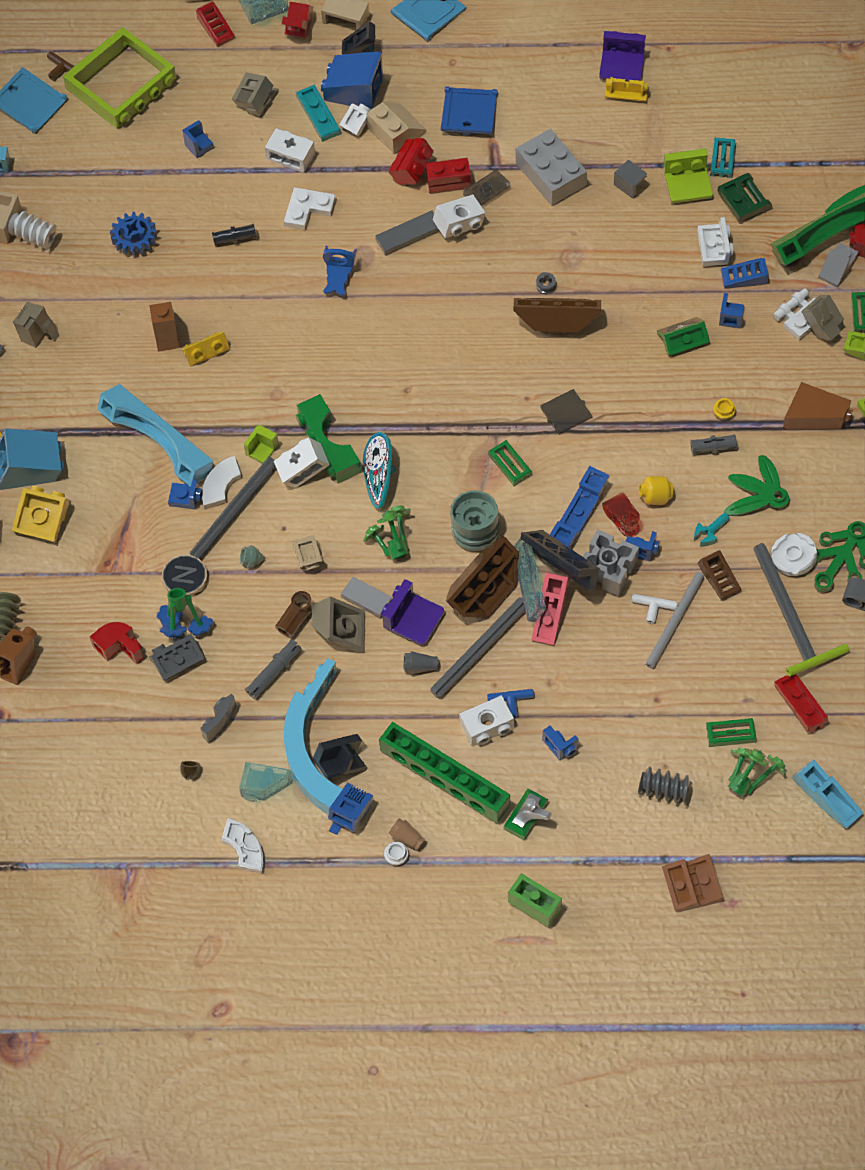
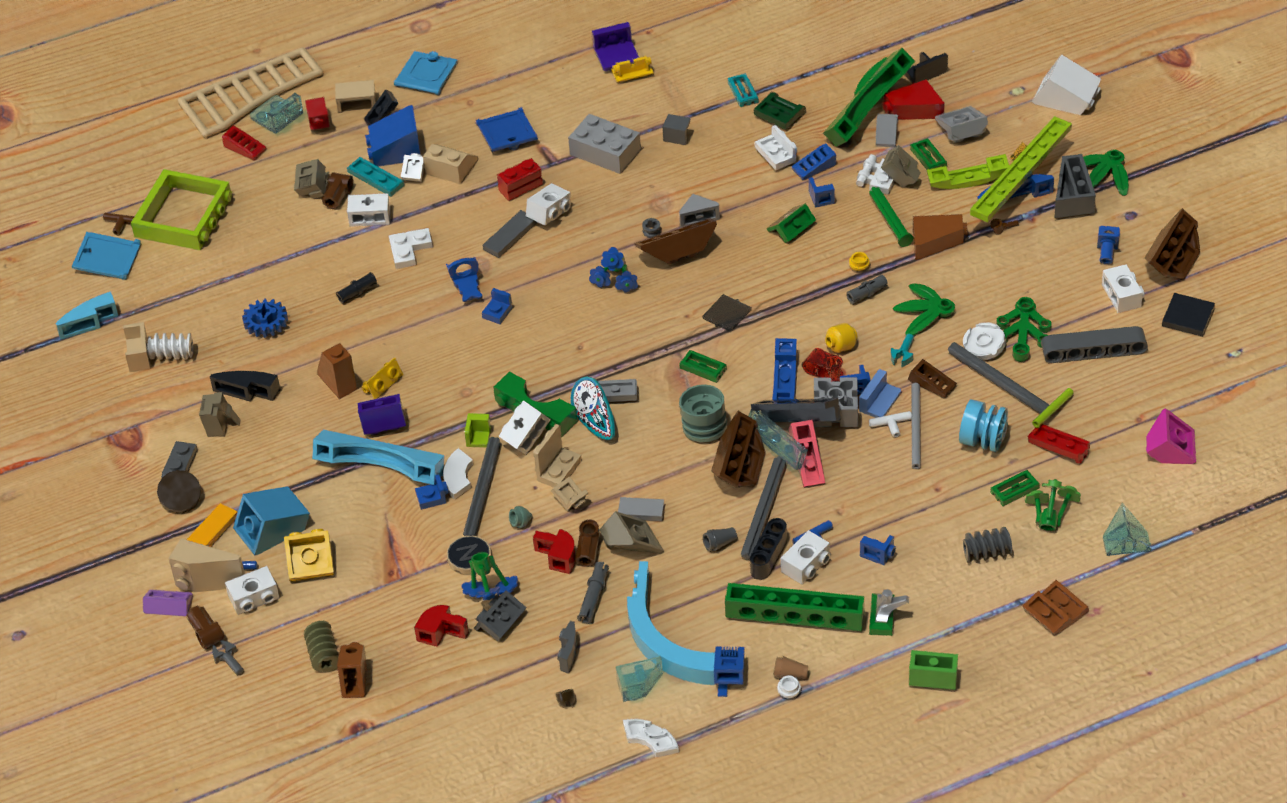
camera: 25 degrees left, 15 degrees down
(80, 301) = (246, 384): none -> black slope
(181, 389) = (381, 414): none -> dark purple brick
(196, 139) = (278, 232): blue panel -> none
(267, 609) = (559, 549): none -> red brick
(276, 110) = (338, 186): none -> reddish brown piece
(312, 509) = (552, 461): none -> tan bracket
(339, 756) = (695, 630): black panel -> none
(353, 312) = (498, 307): none -> blue bracket
(398, 546) = (645, 460): plant -> none
(411, 161) = (481, 179): red brick -> none
(411, 614) = (690, 506): dark purple bracket -> none
(412, 455) = (620, 389): none -> light grey hinge
(460, 686) = (768, 549): none -> black beam
(479, 313) = (613, 261): none -> blue plant
(488, 187) = (559, 175): clear smoke plate -> none
(598, 284) = (697, 210): none -> light grey slope
(657, 571) = (878, 396): none -> medium blue panel
(687, 175) = (721, 110): lime bracket -> none
(733, 653) = (988, 426): none -> medium azure wheel
(784, 369) = (904, 238): none -> green axle
(806, 834) = (1125, 534): none -> clear light blue slope
(827, 794) = (1111, 495): medium azure slope -> none

